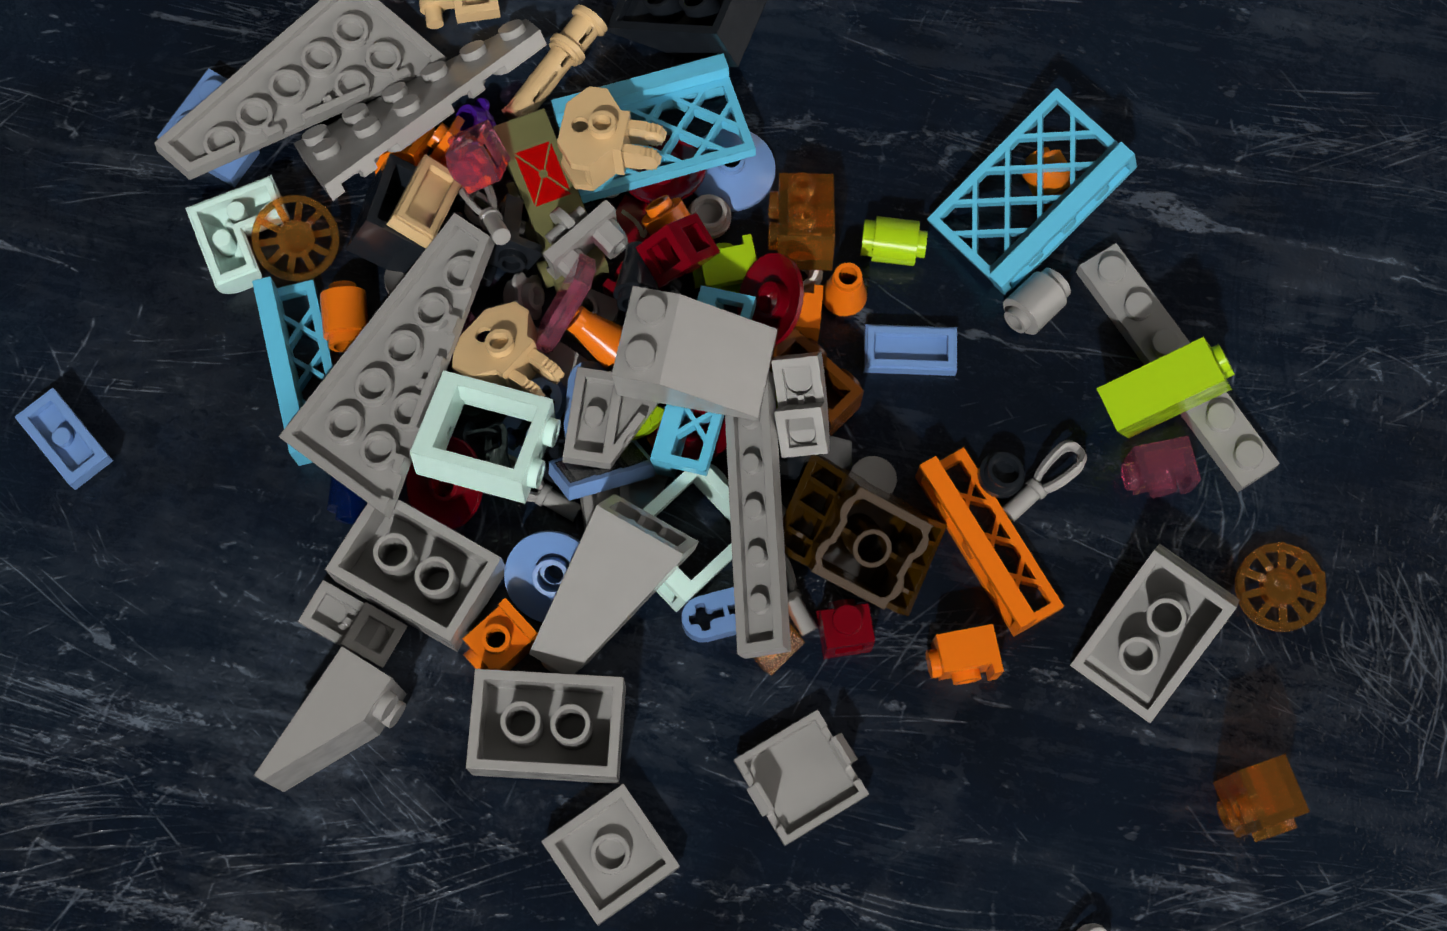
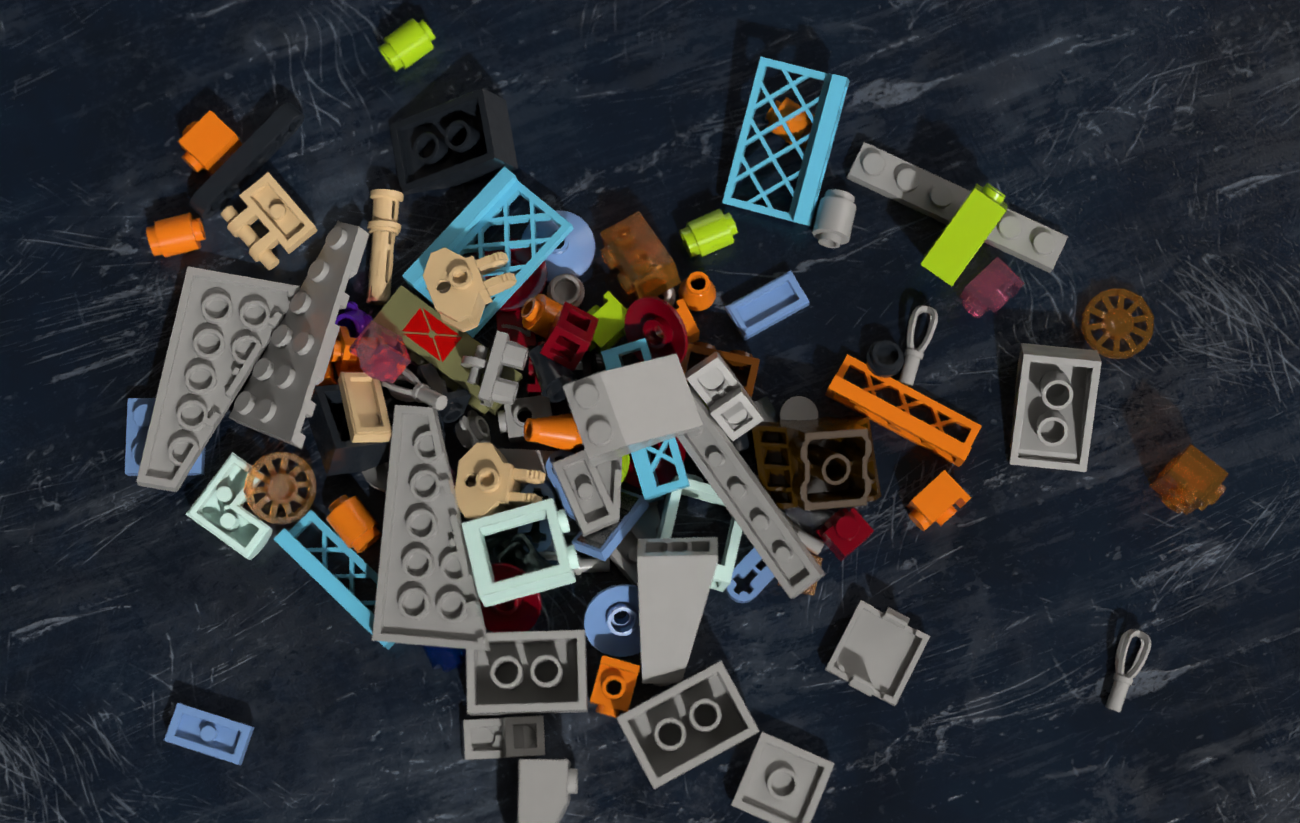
camera: 30 degrees left, 5 degrees up
(565, 303) = (515, 423): clear pink tile -> none

